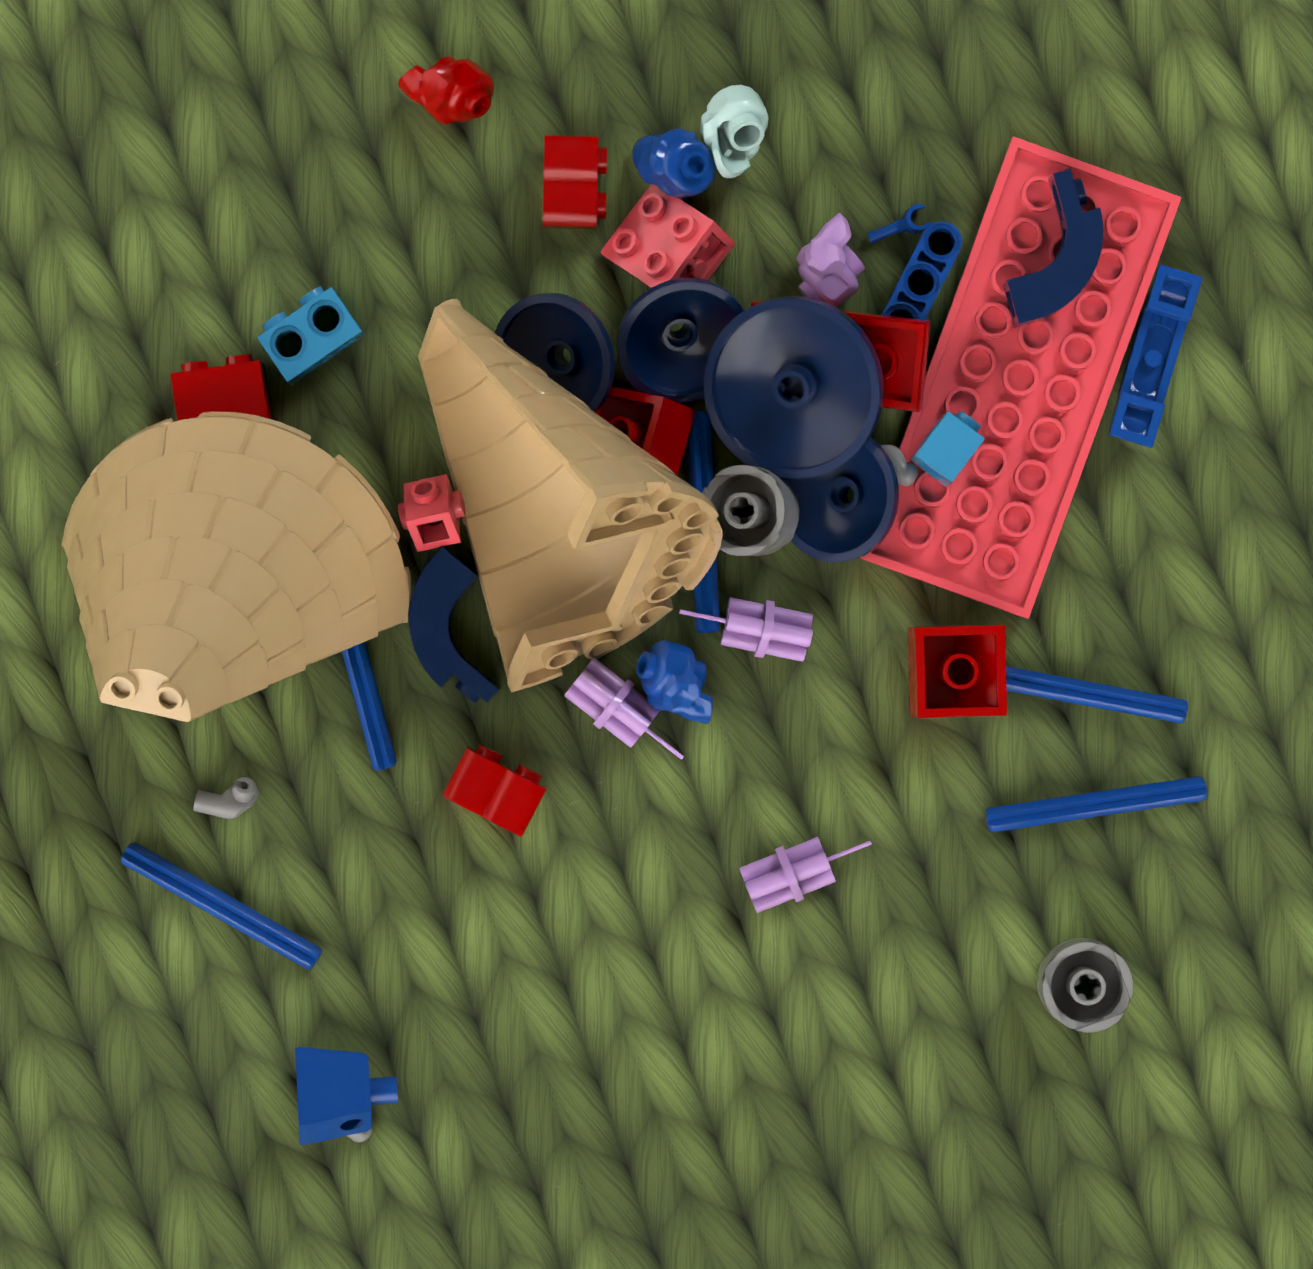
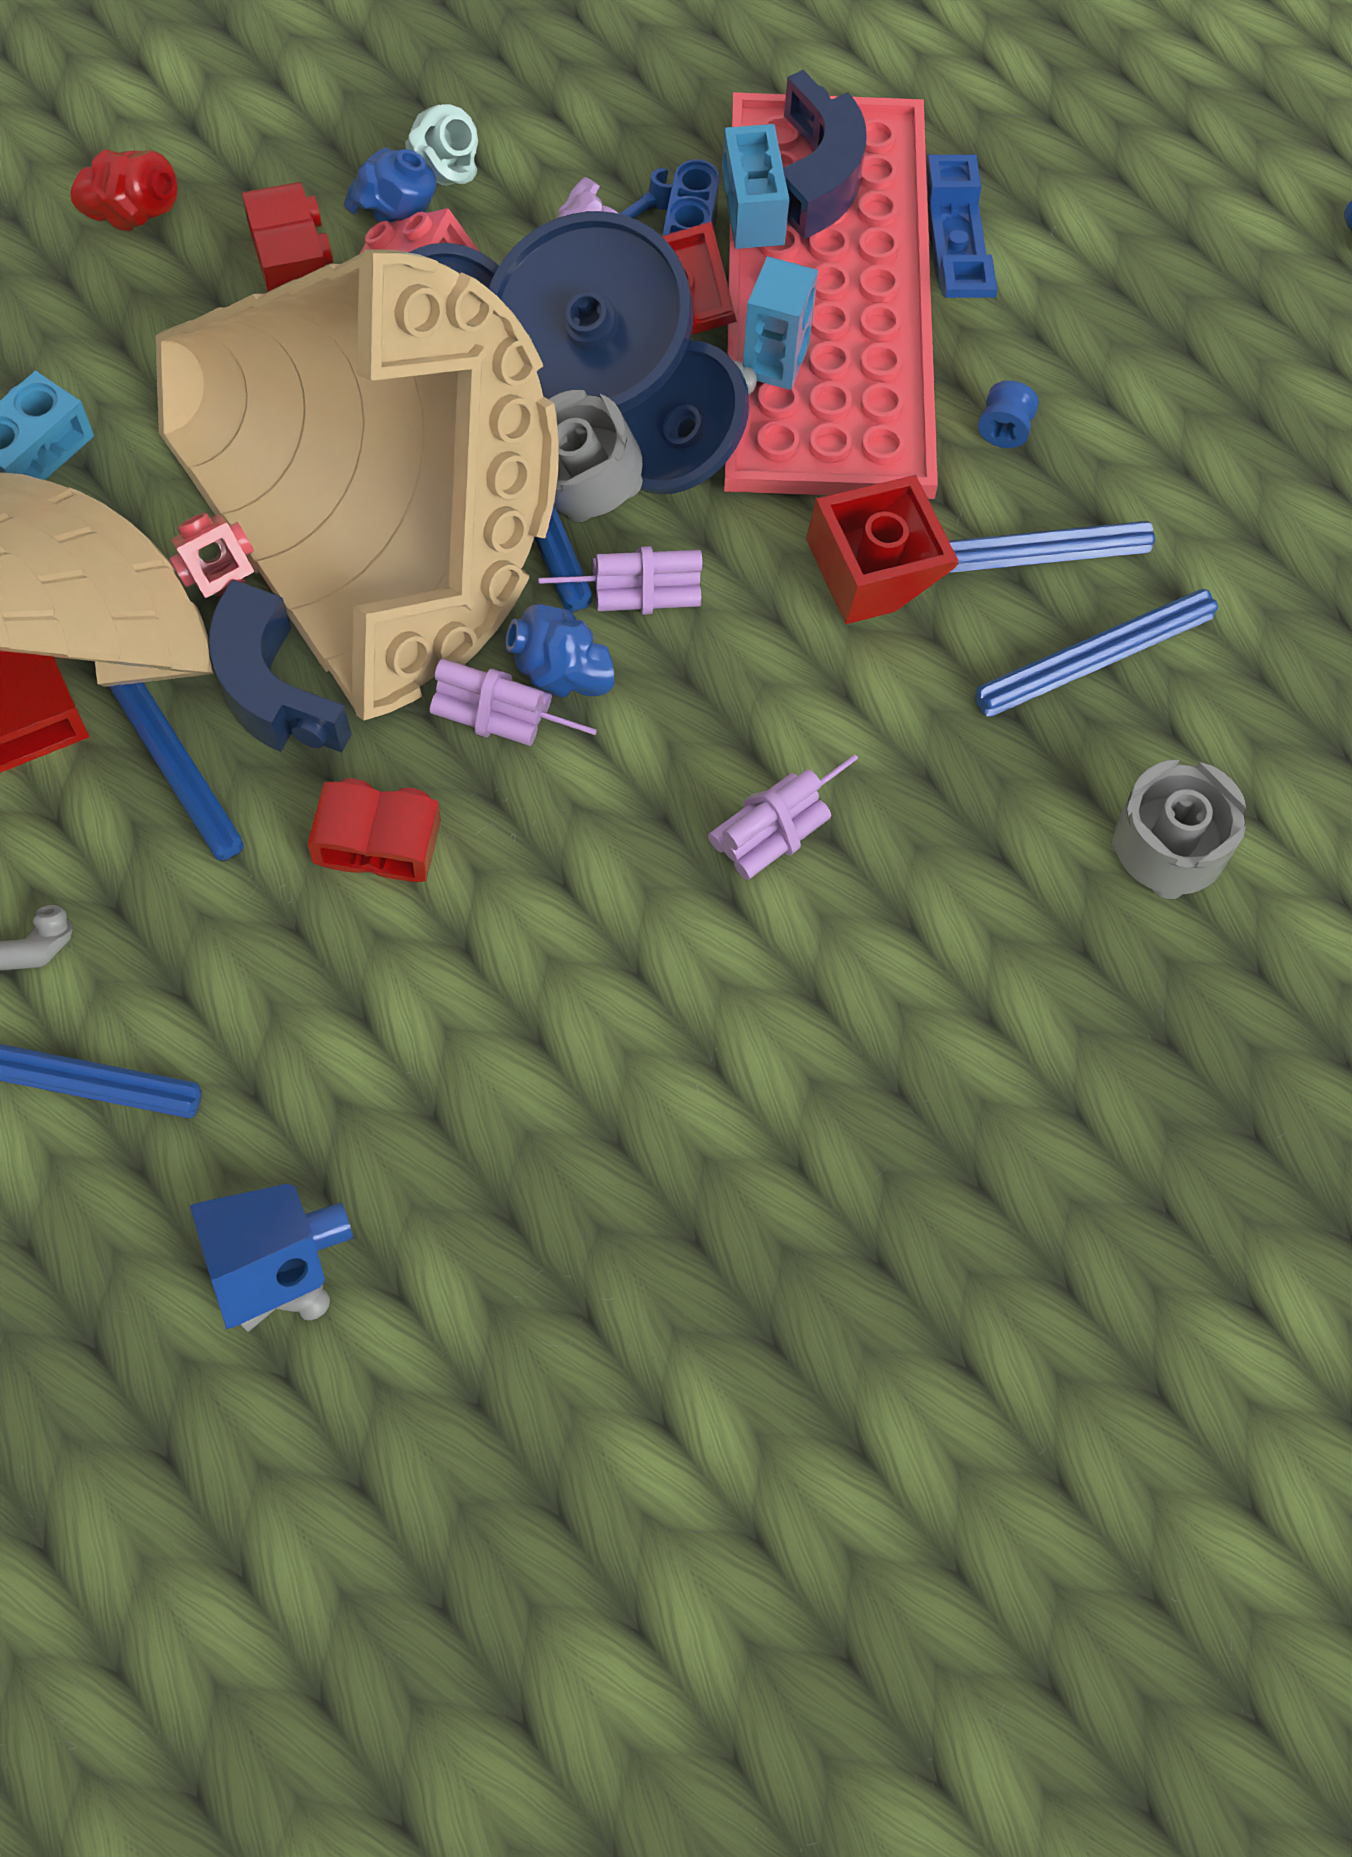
camera: 20 degrees left, 25 degrees down
(982, 284) = (755, 186): none -> dark azure brick
(1116, 563) = (1008, 414): none -> blue wheel

